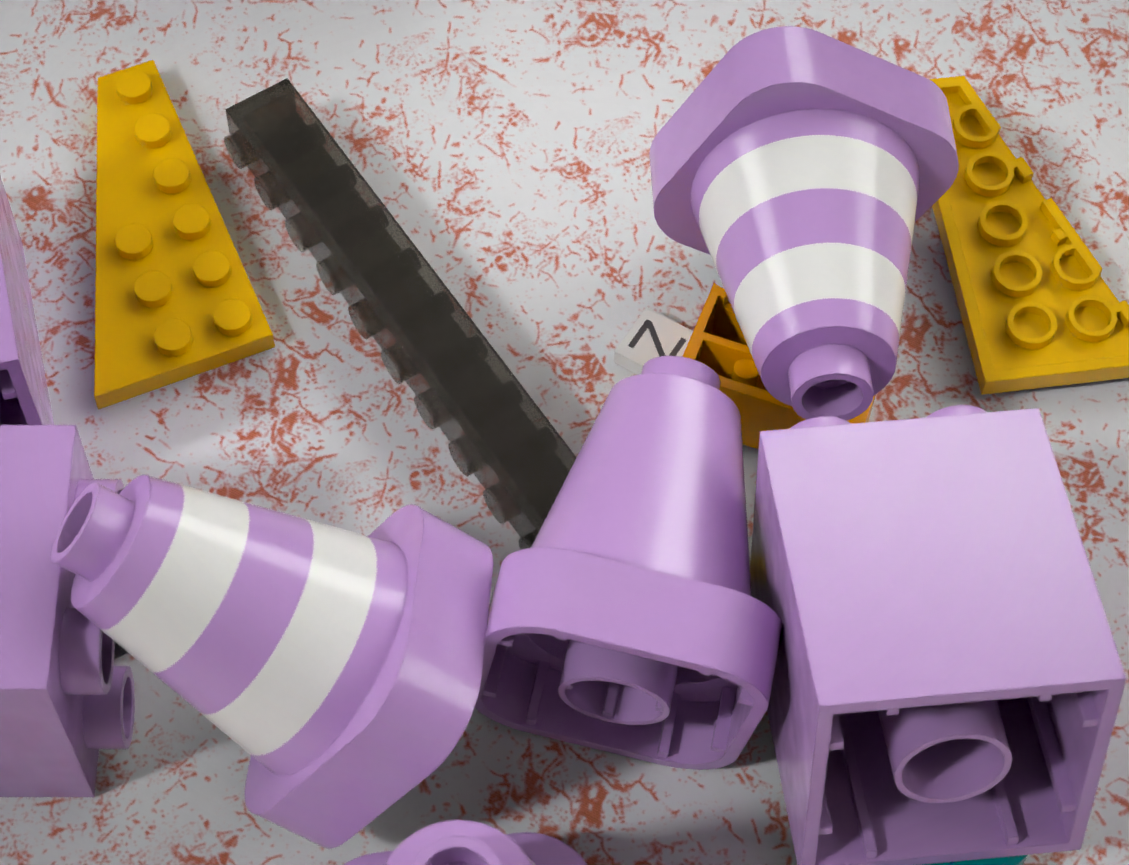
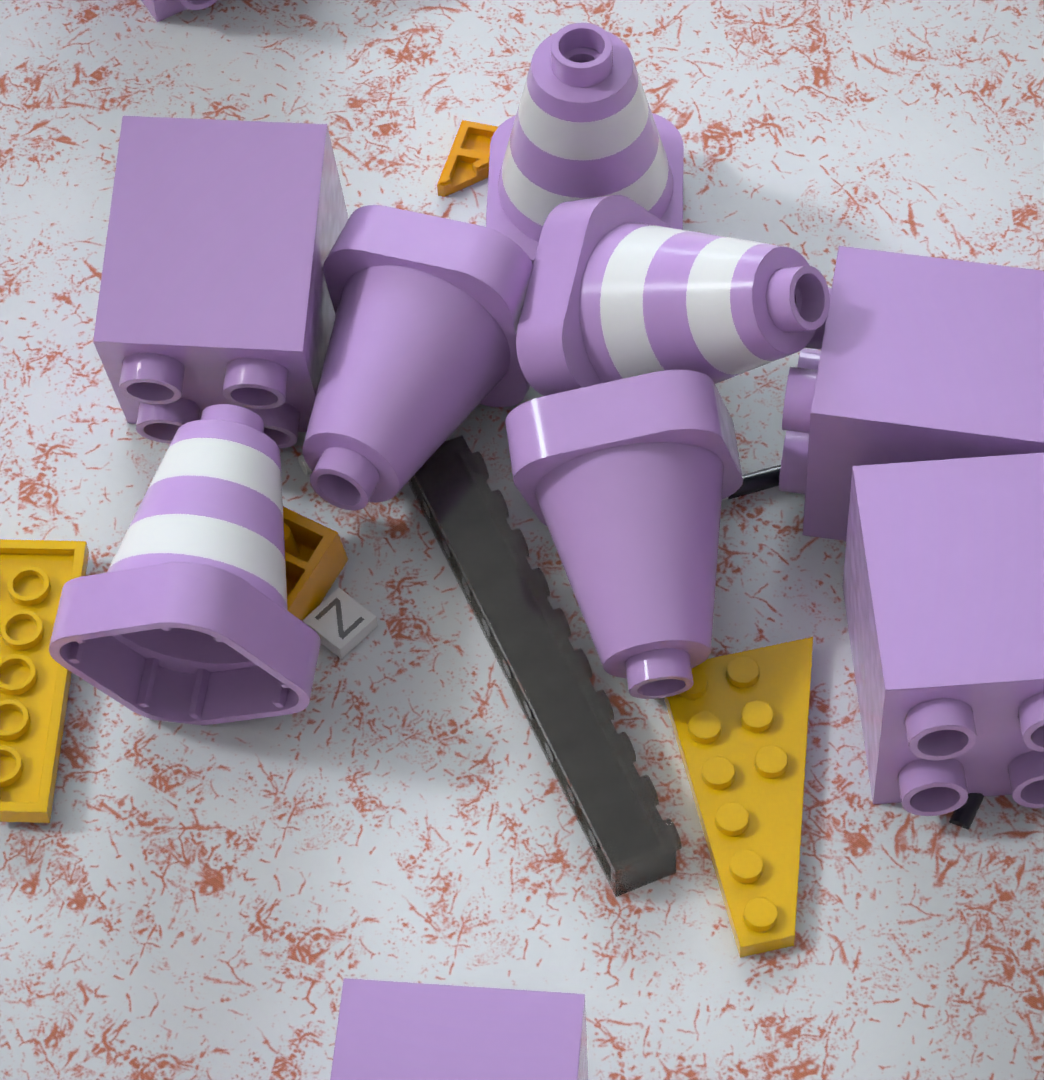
camera: 165 degrees left, 5 degrees down
(315, 401) = (633, 504): none -> lavender cone

